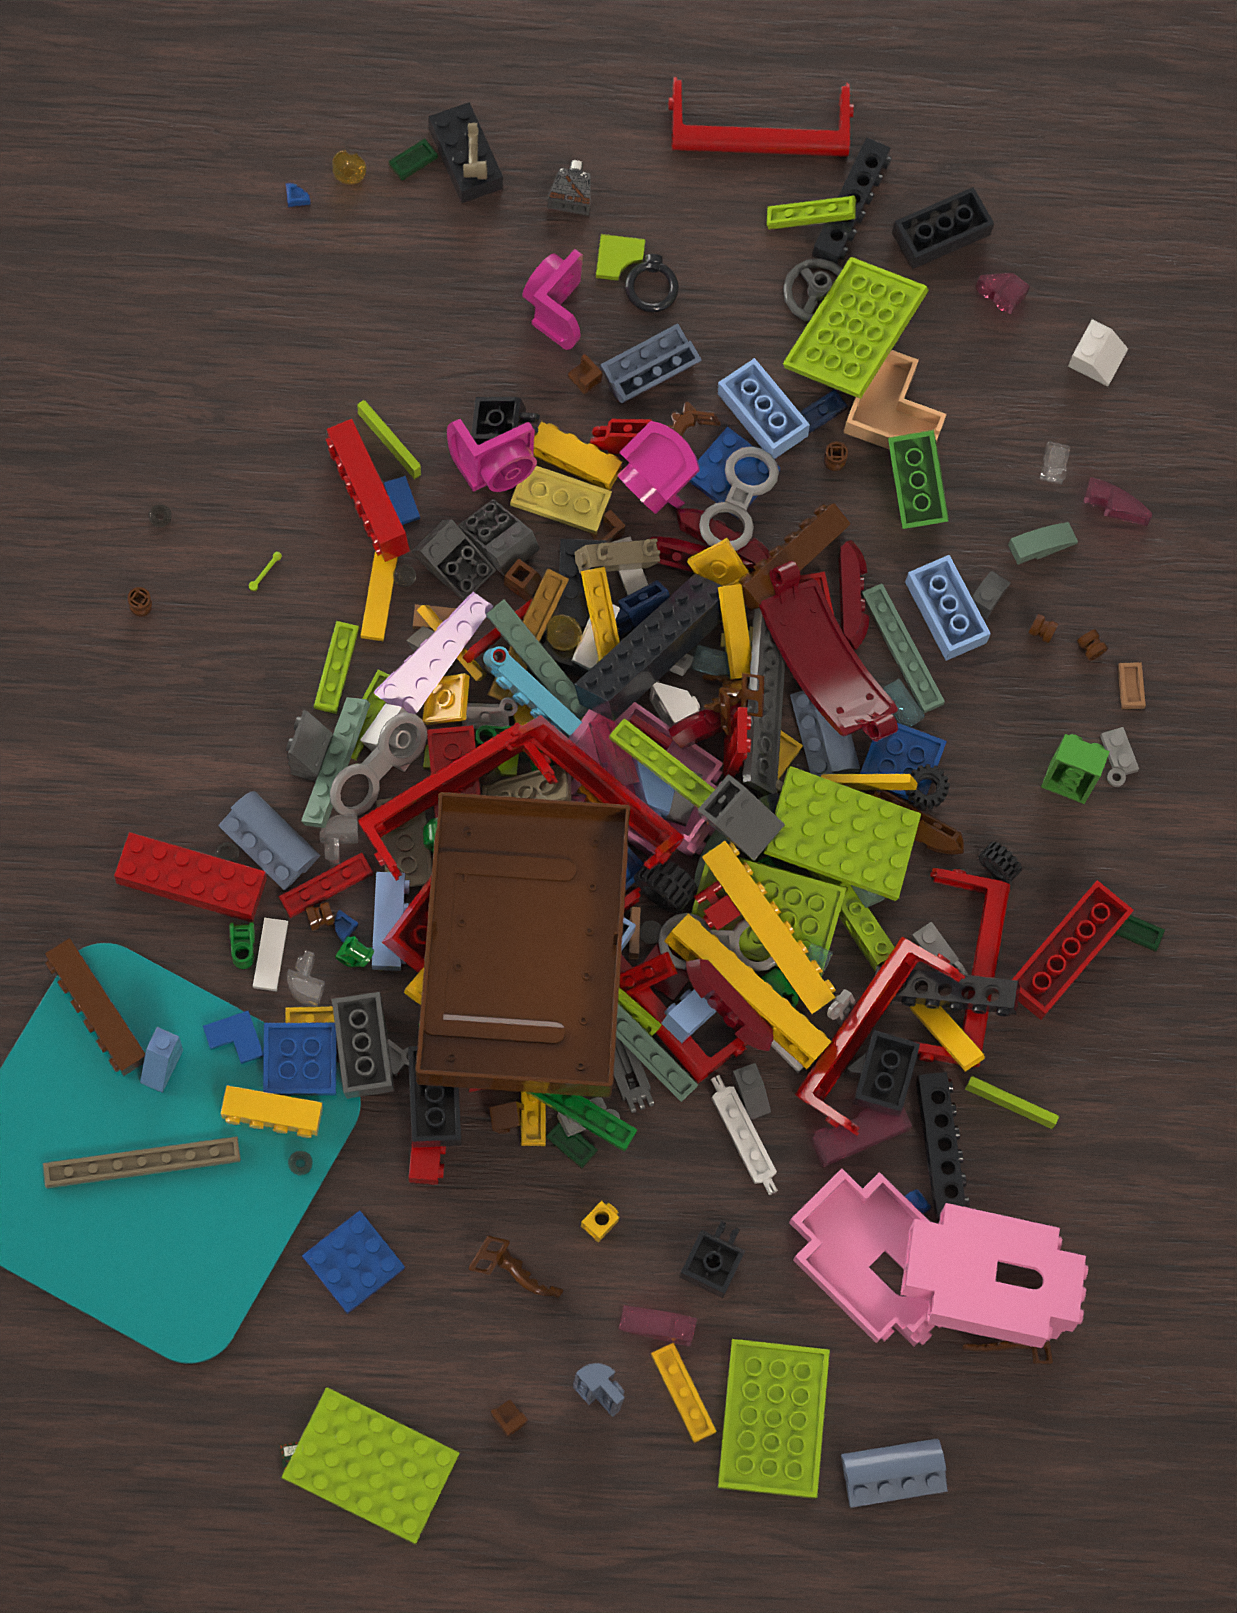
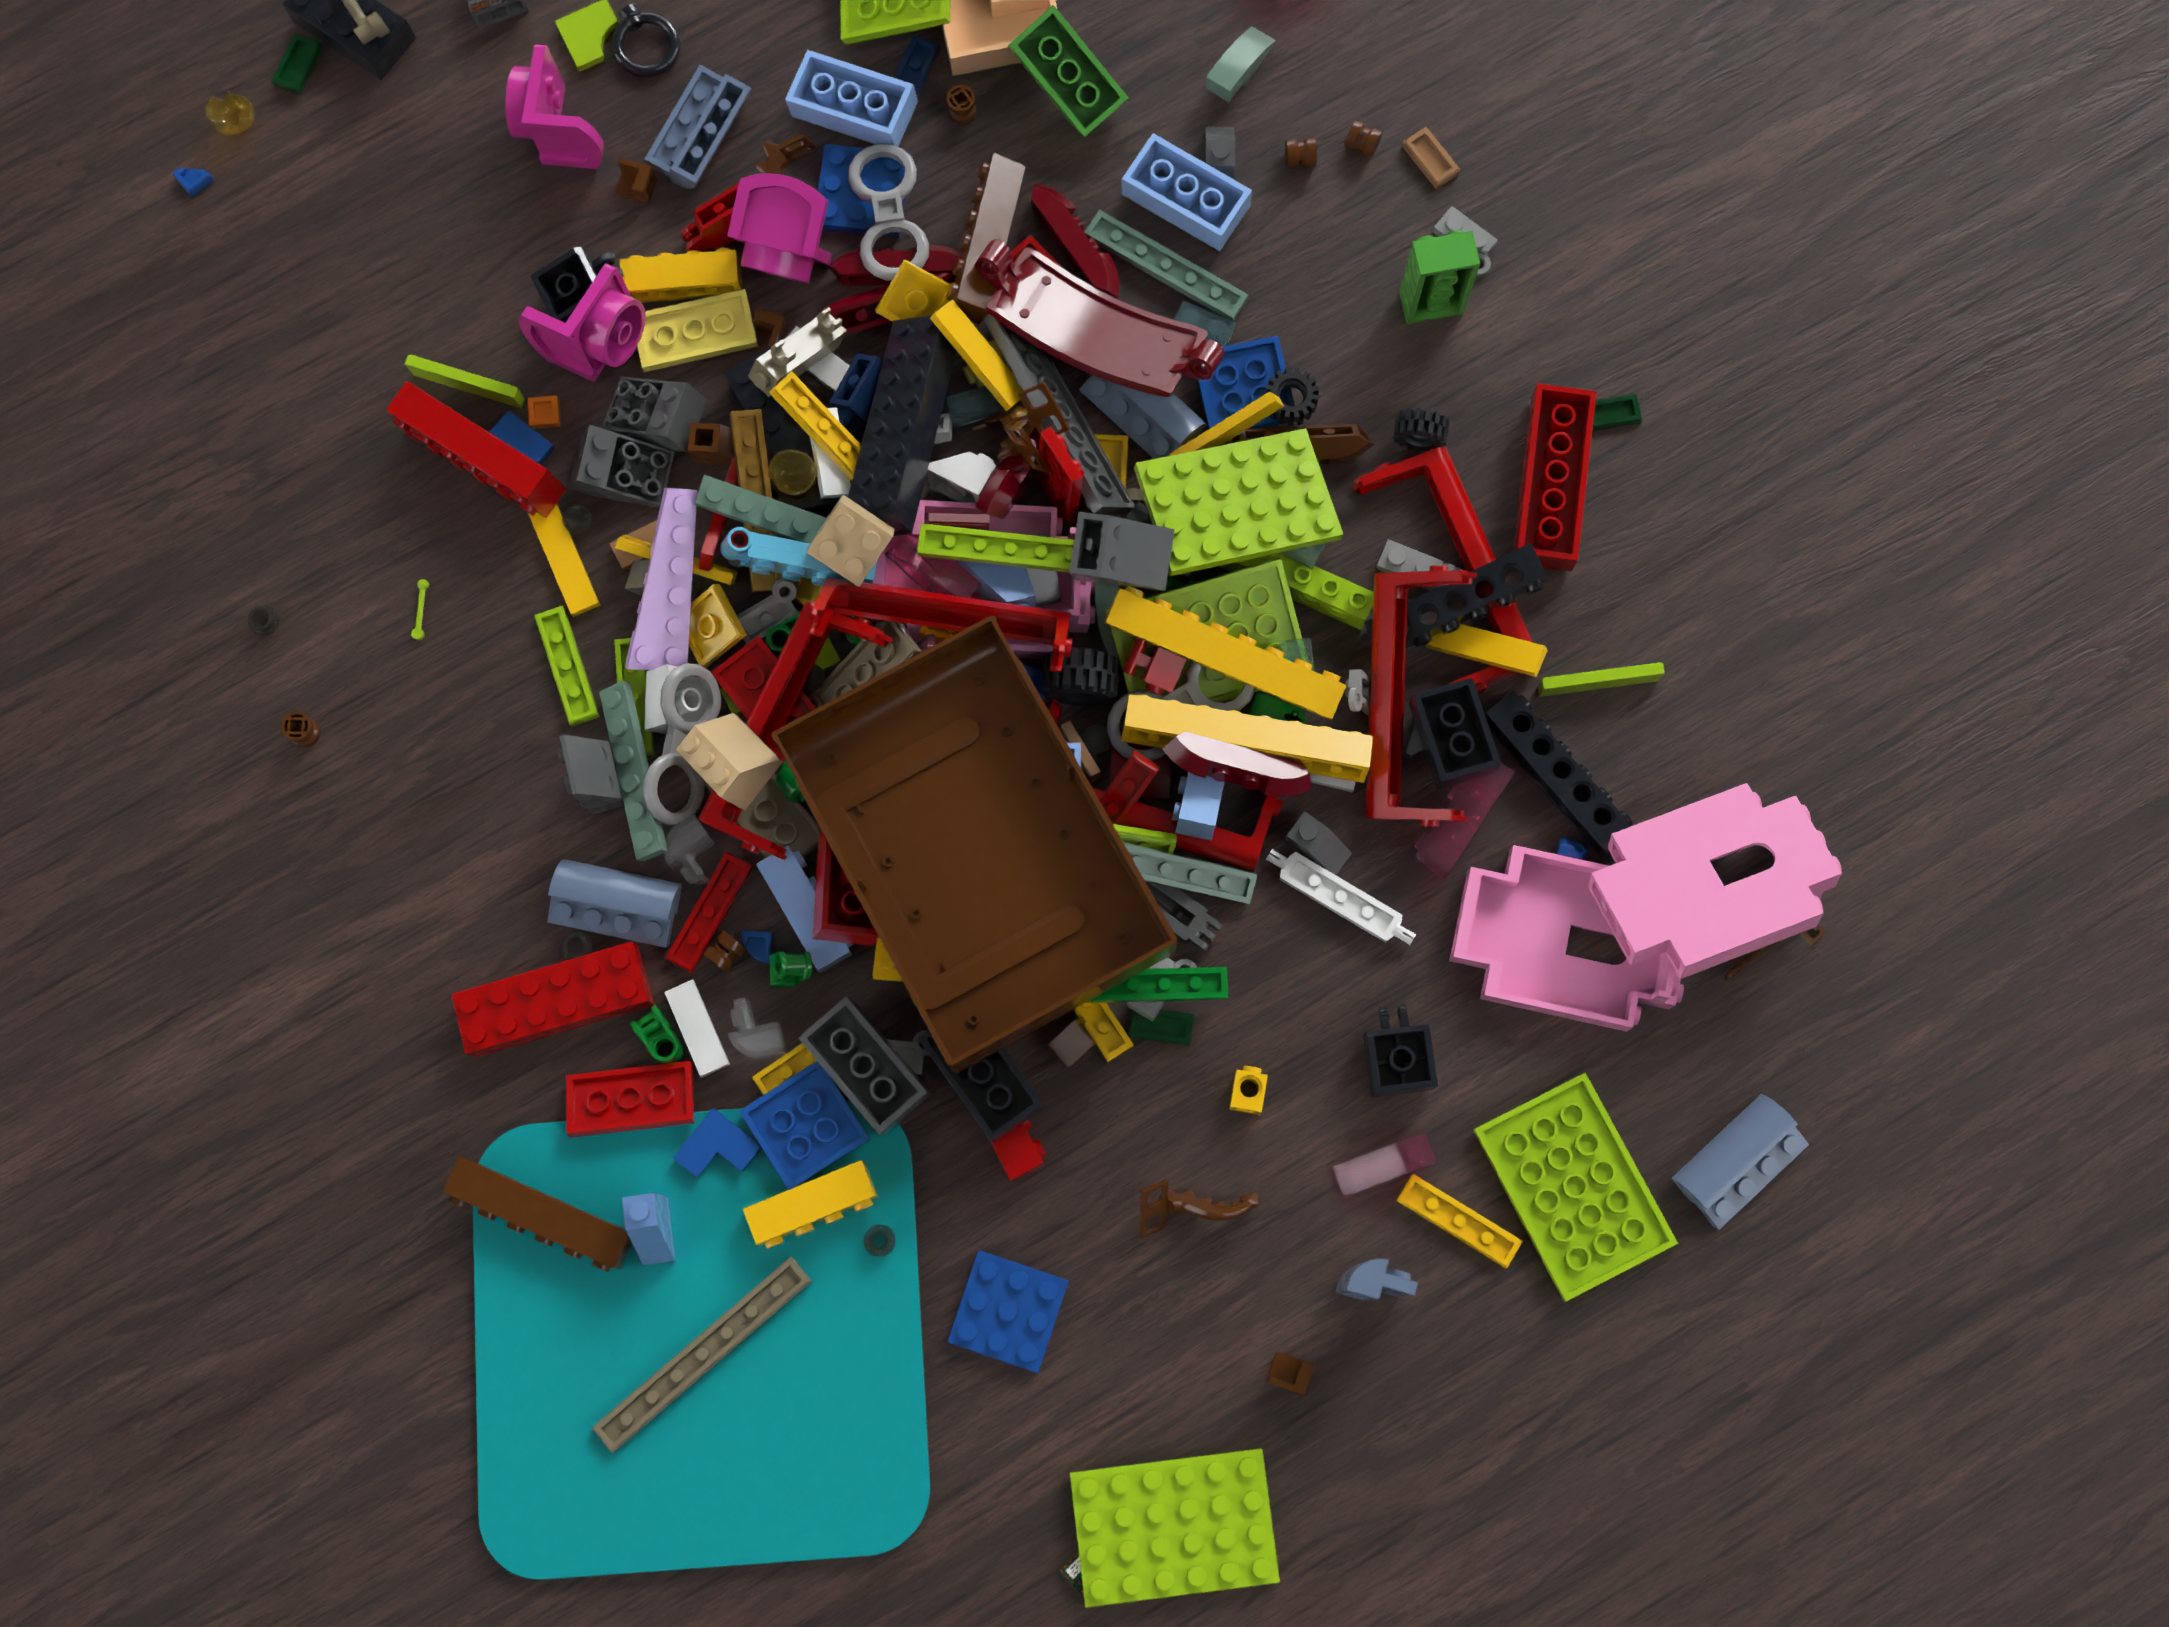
camera: 20 degrees left, 5 degrees up
(199, 972) = (629, 1099): none -> red plate
(403, 793) = (730, 758): none -> tan slope
(427, 491) = (544, 412): none -> orange tile
(570, 701) = (850, 540): none -> tan brick

